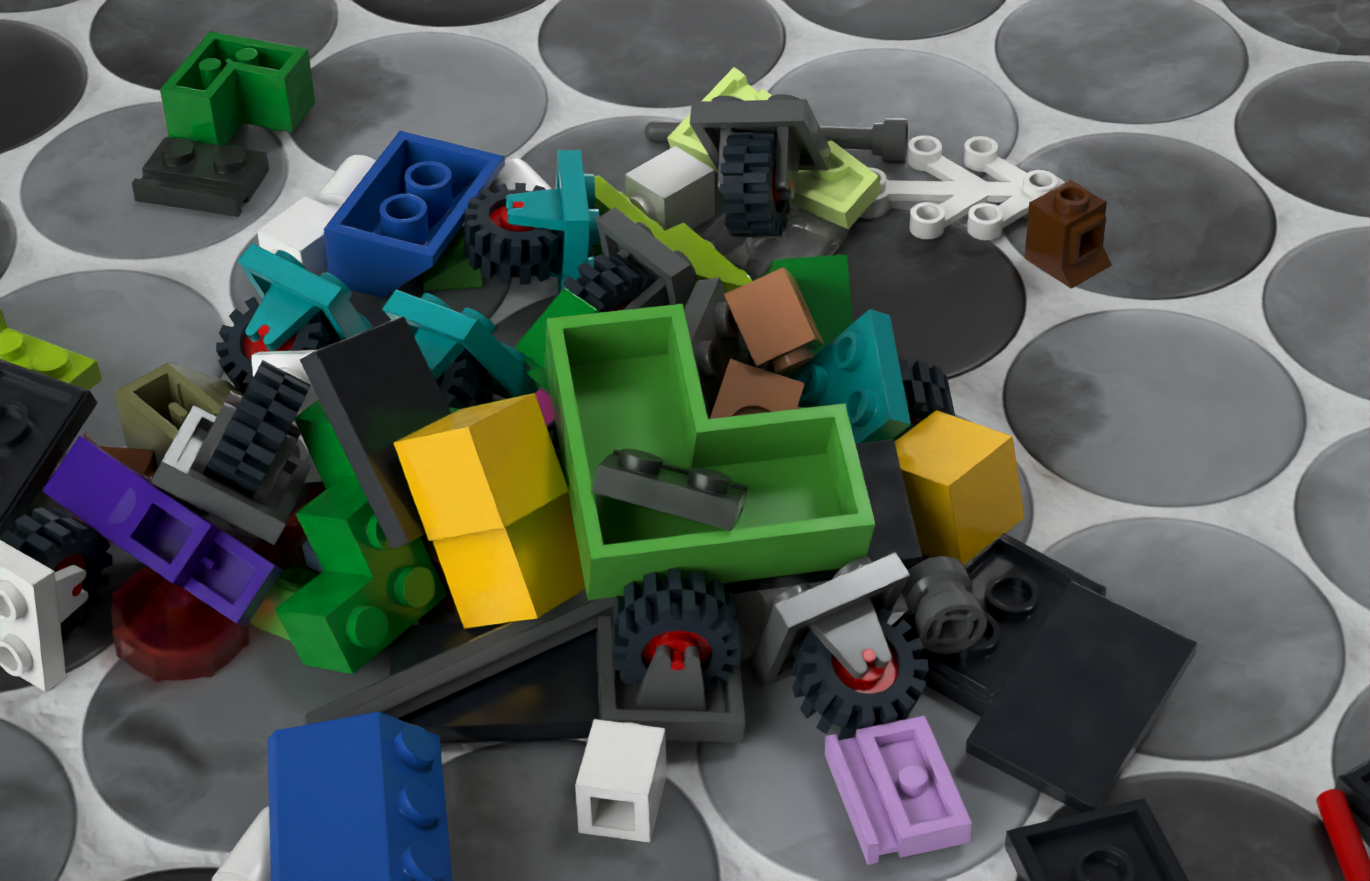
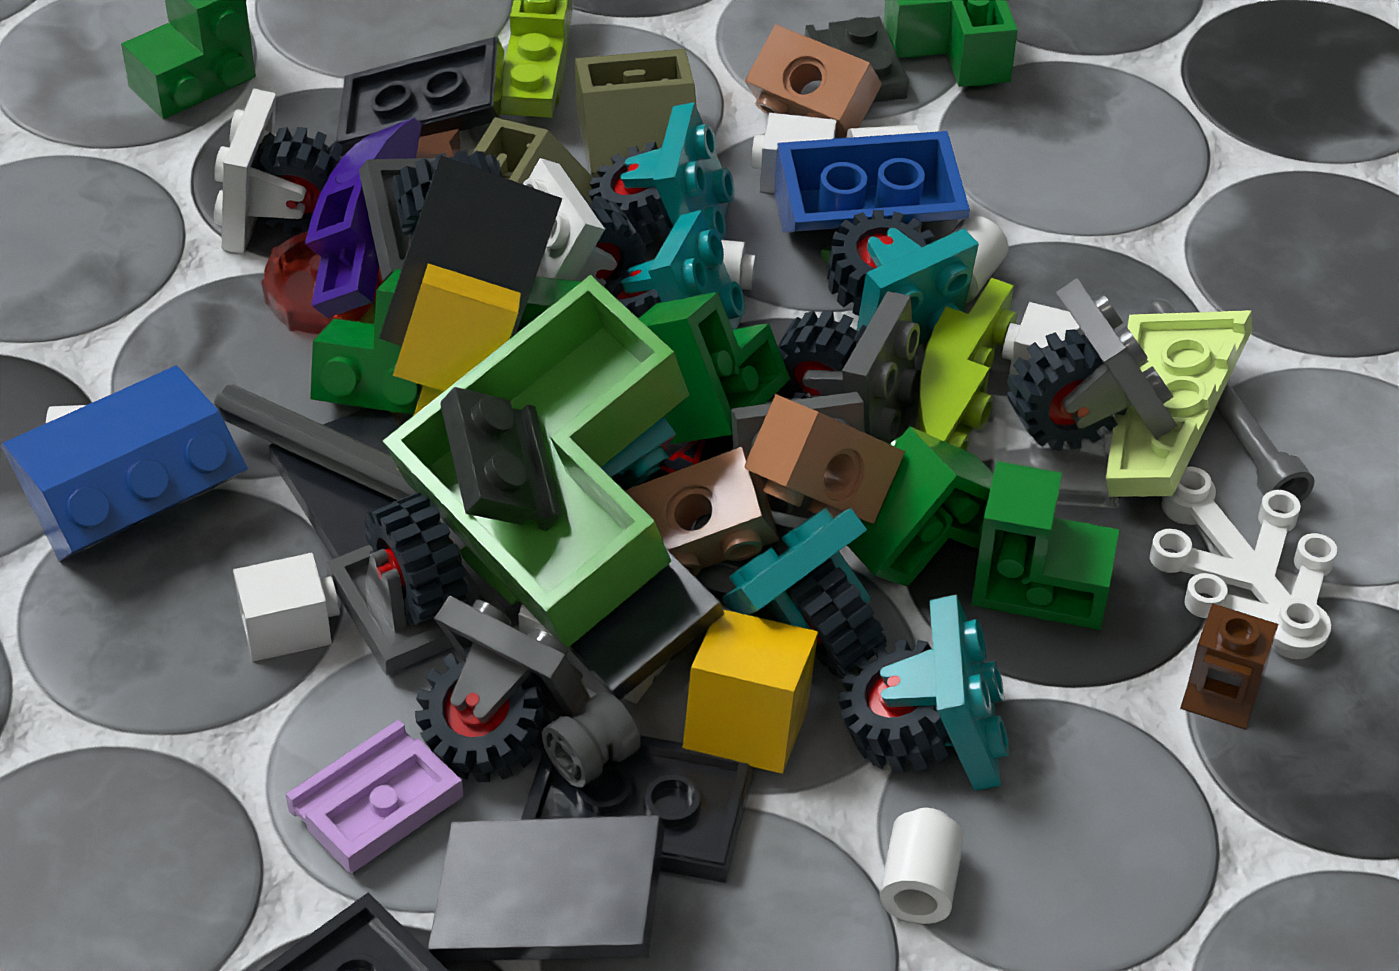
camera: 60 degrees right, 5 degrees up
(159, 310) = (628, 100): none -> olive slope
(250, 173) = (793, 61): none -> nougat brick
(902, 271) = (1038, 561): none -> green brick
(1026, 381) = (930, 699): none -> teal plate
(1171, 468) = (922, 866): none -> white brick

